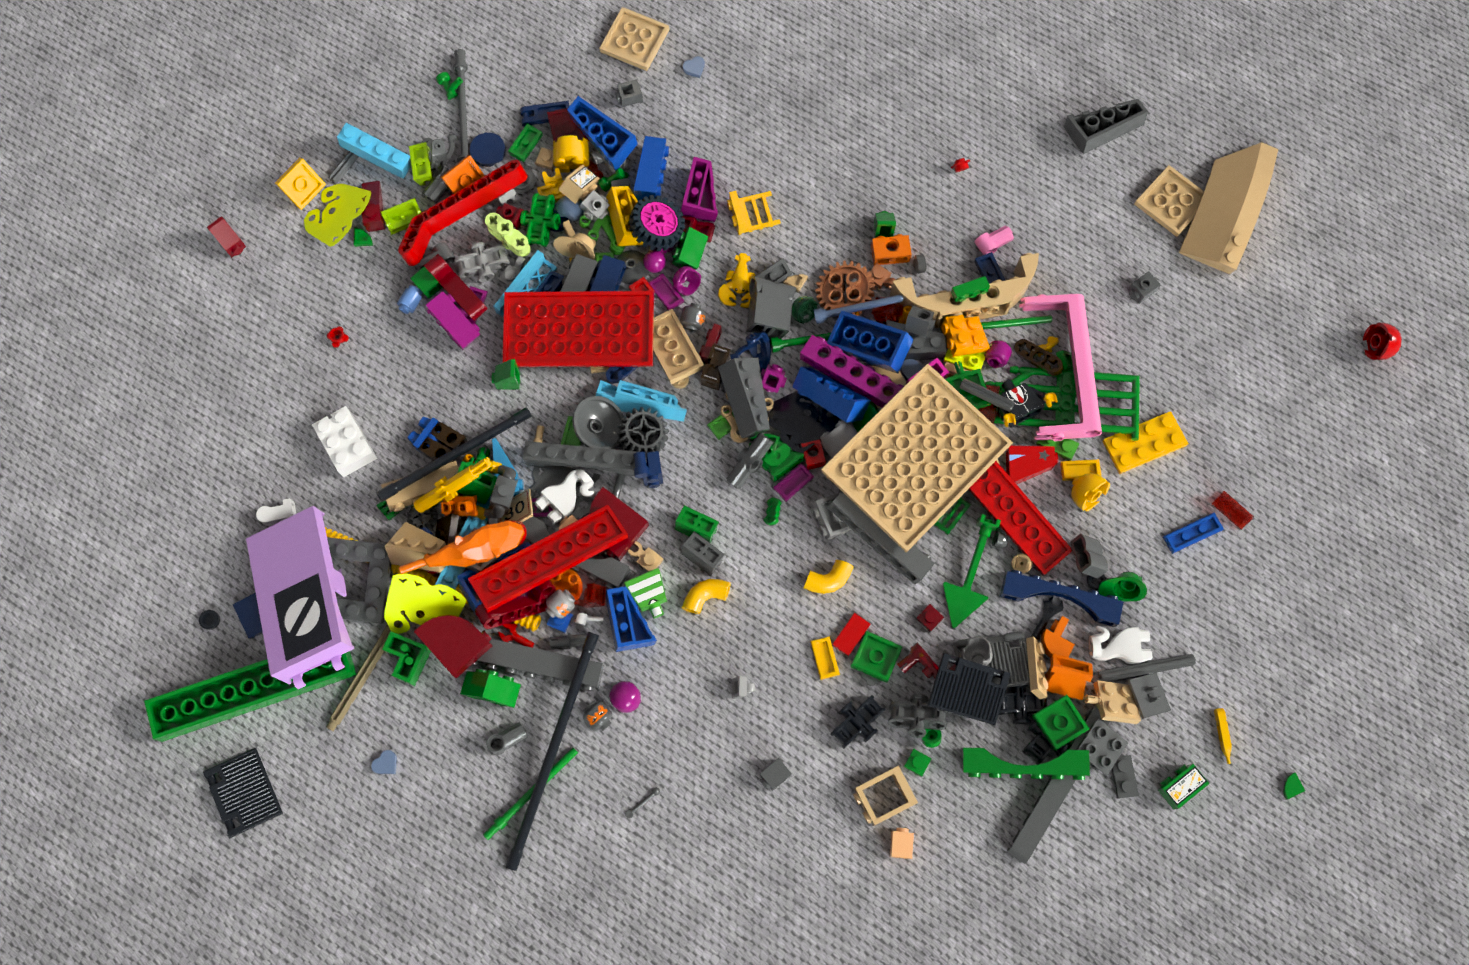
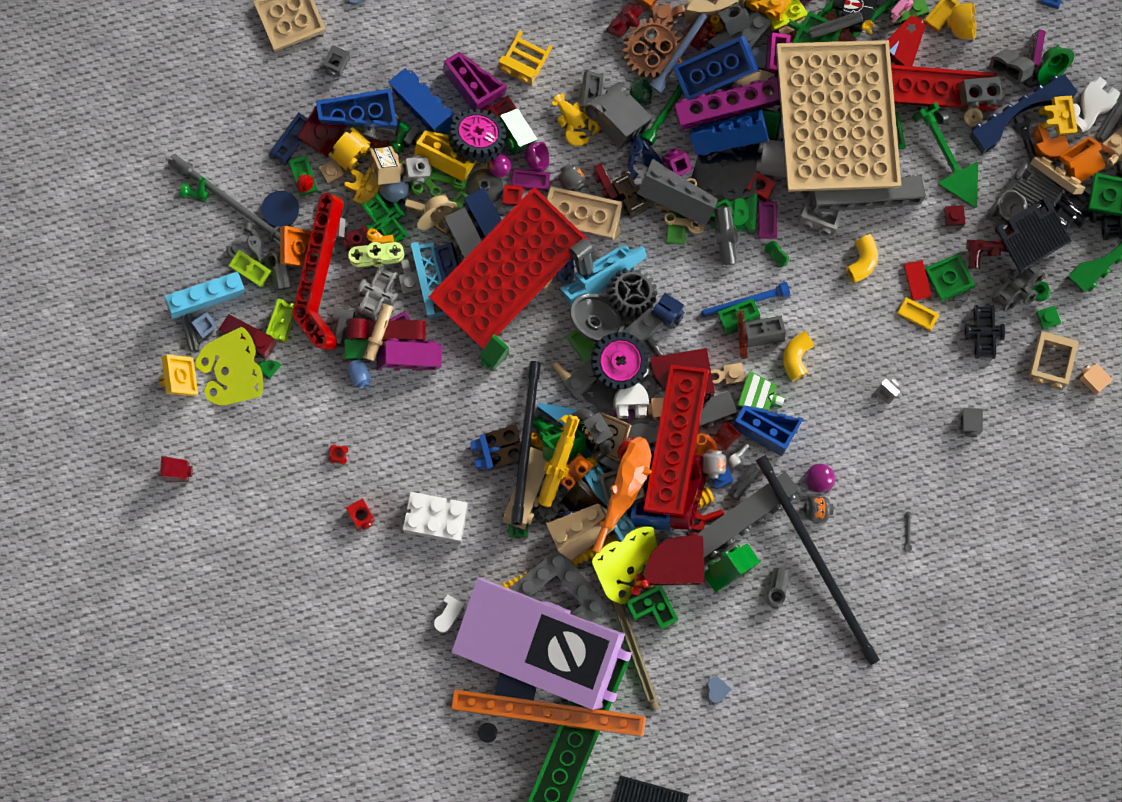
camera: 50 degrees left, 5 degrees up
(251, 650) = (548, 713): none -> orange plate
(302, 381) = (357, 507): none -> red brick
(355, 170) = (203, 324): none -> sand blue plate
(410, 628) = (639, 583): none -> red bar
(447, 282) = (375, 340): none -> tan pin
(501, 821) = (835, 641): green bar -> none
(517, 145) = (304, 183): none -> red plate
(519, 224) = (374, 236): none -> light orange arm
(586, 472) = (619, 345): none -> wheel
(633, 370) = (581, 254): none -> dark grey piece
(683, 538) = (742, 337): none -> clear red piece
(746, 538) = (780, 291): none -> blue piece
(796, 280) = (610, 78): tan tile -> none
(849, 252) = (625, 19): none -> dark red plate
(1047, 545) = (979, 88): none -> dark grey brick
(1086, 627) = (1060, 115): none -> yellow plate
(1123, 563) = (1036, 47): none -> magenta tile

